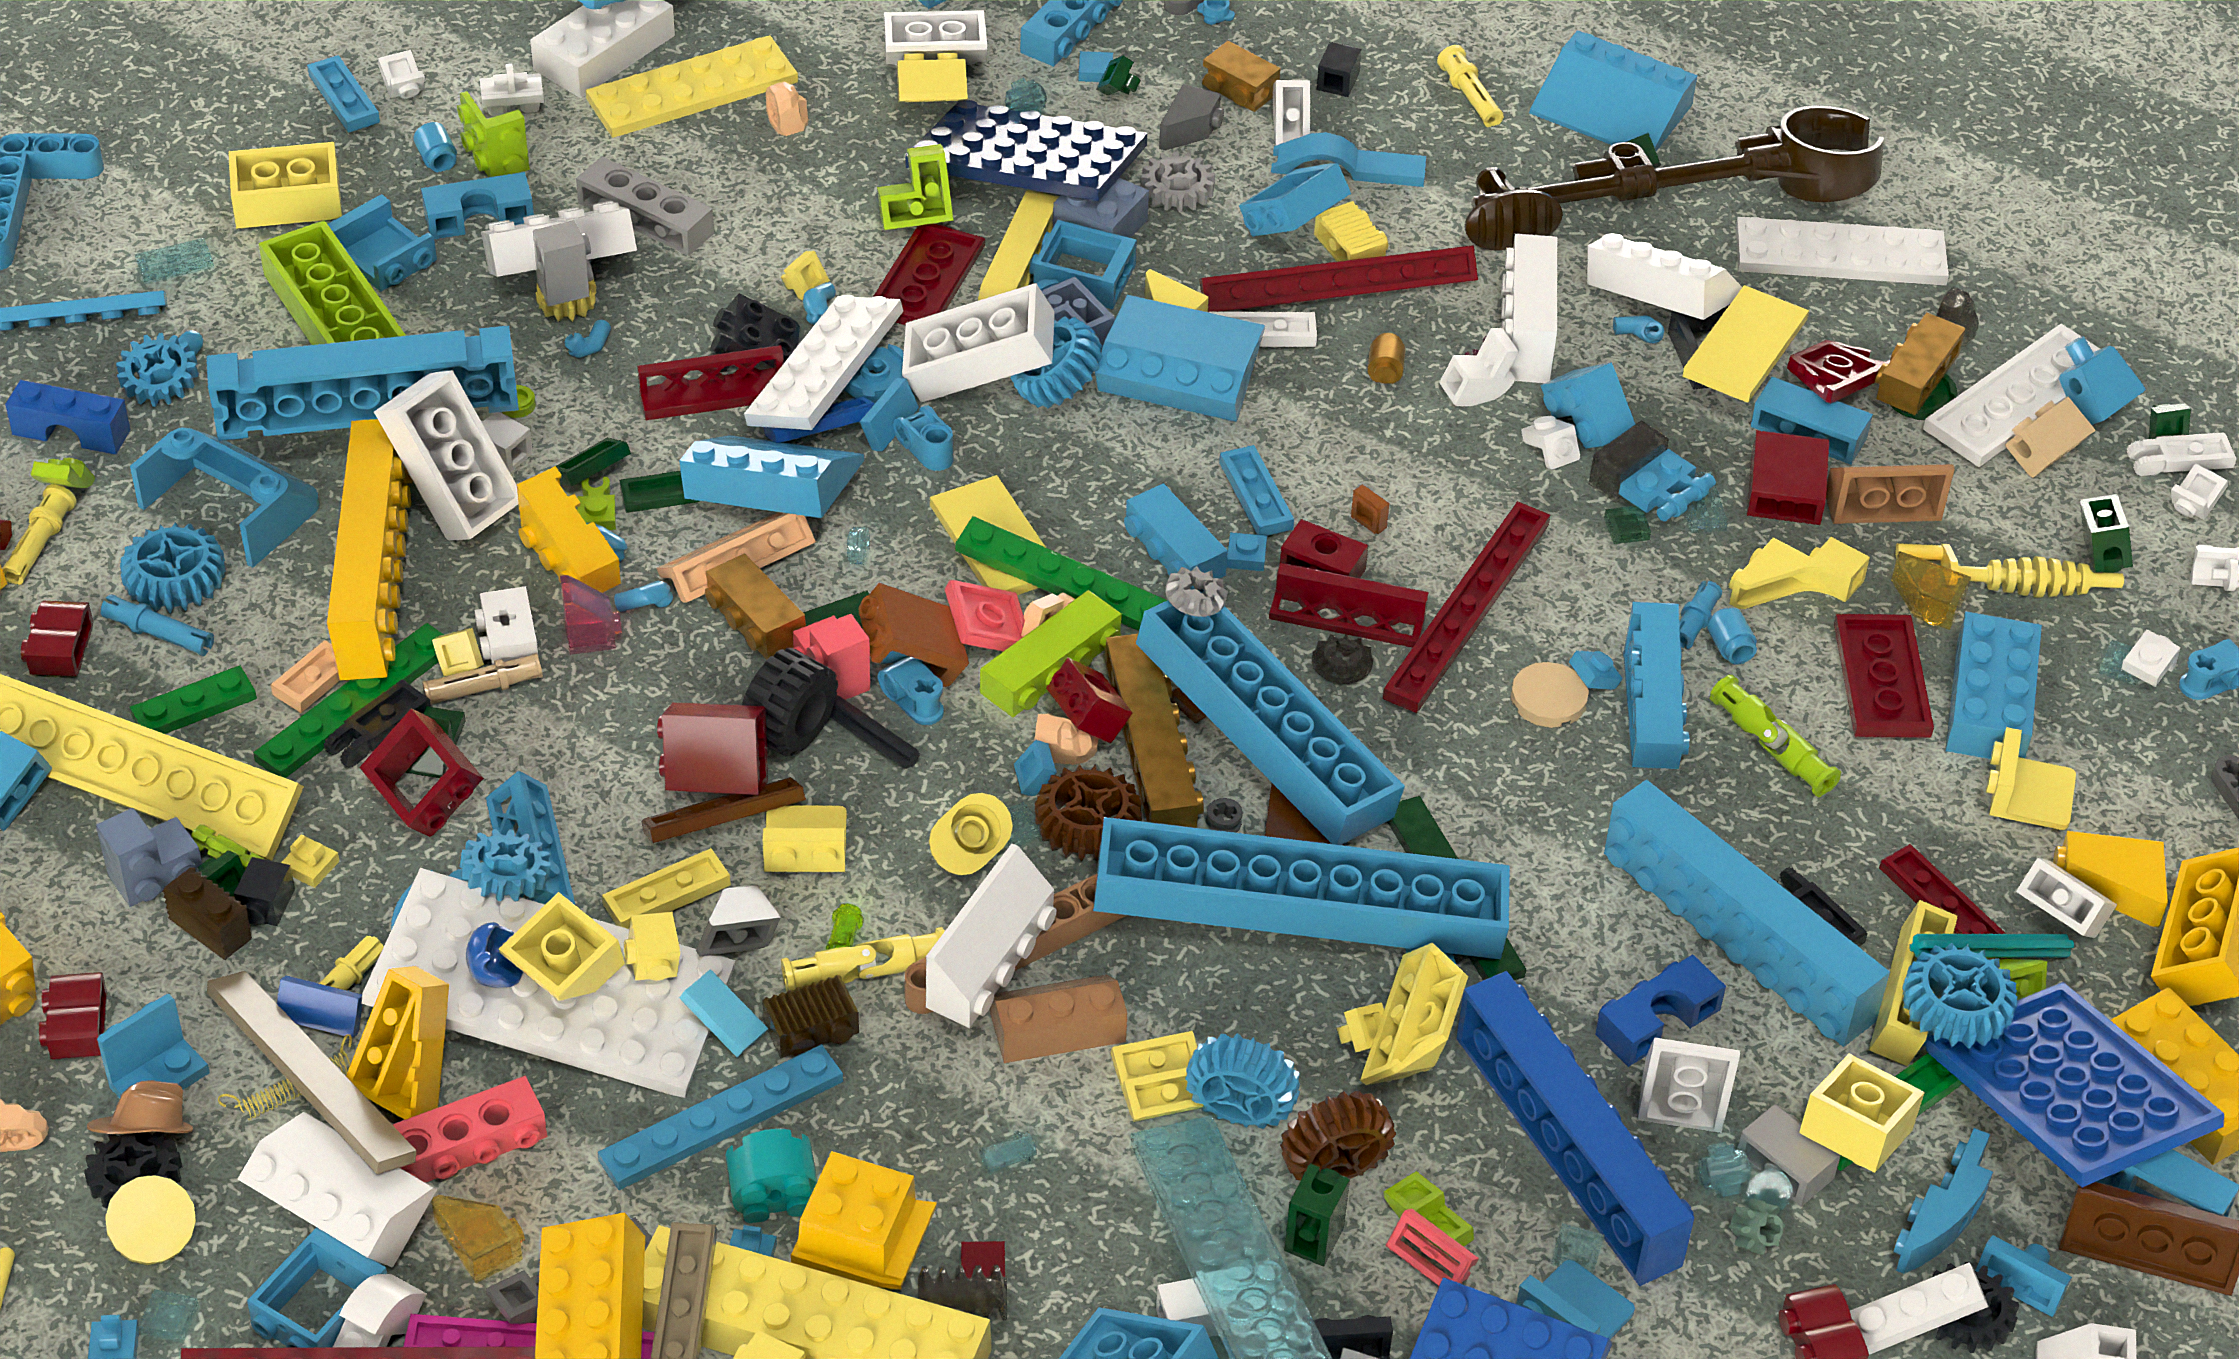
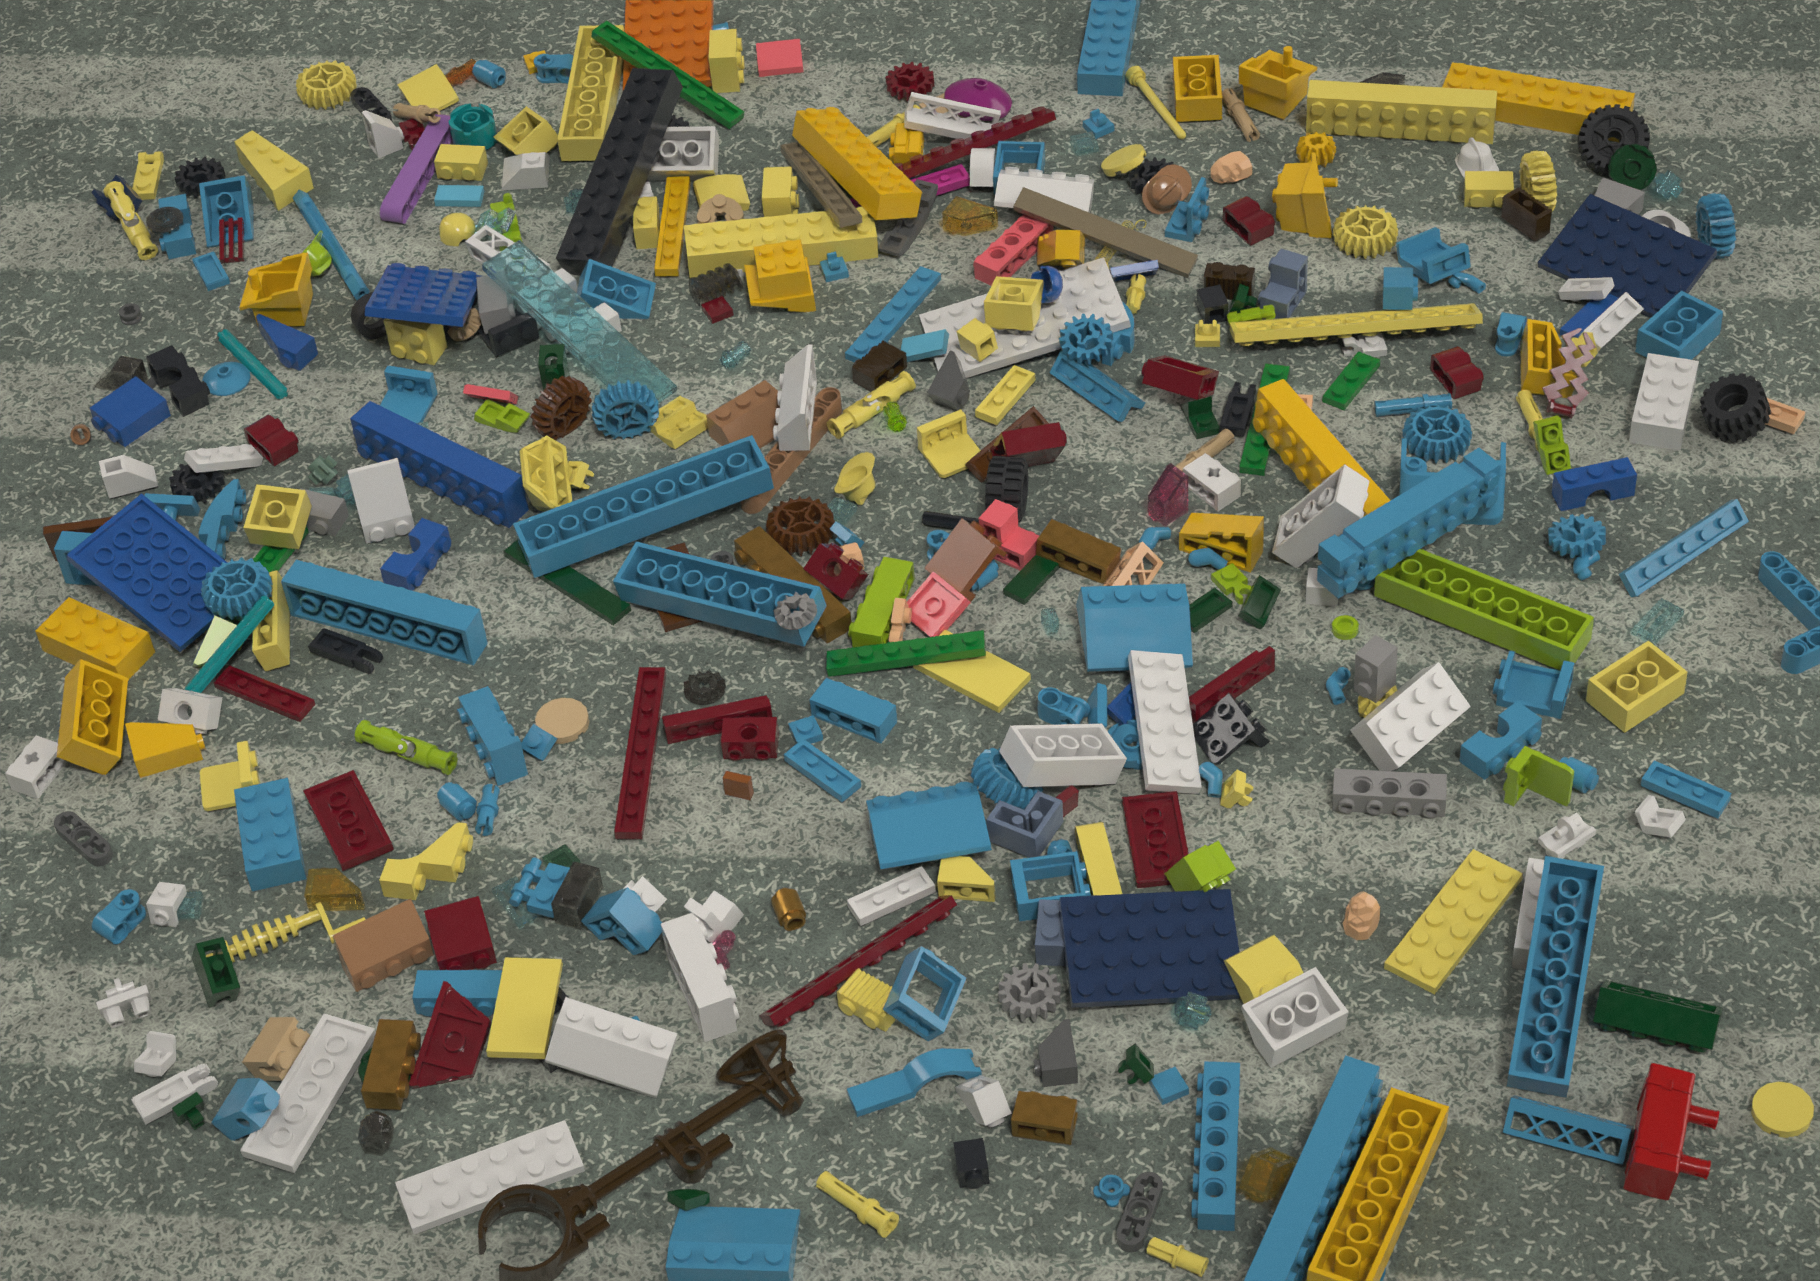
camera: 160 degrees right, 0 degrees up
(457, 652) = (1228, 455): light yellow tile -> none
(771, 1174) = (841, 284): teal brick -> none

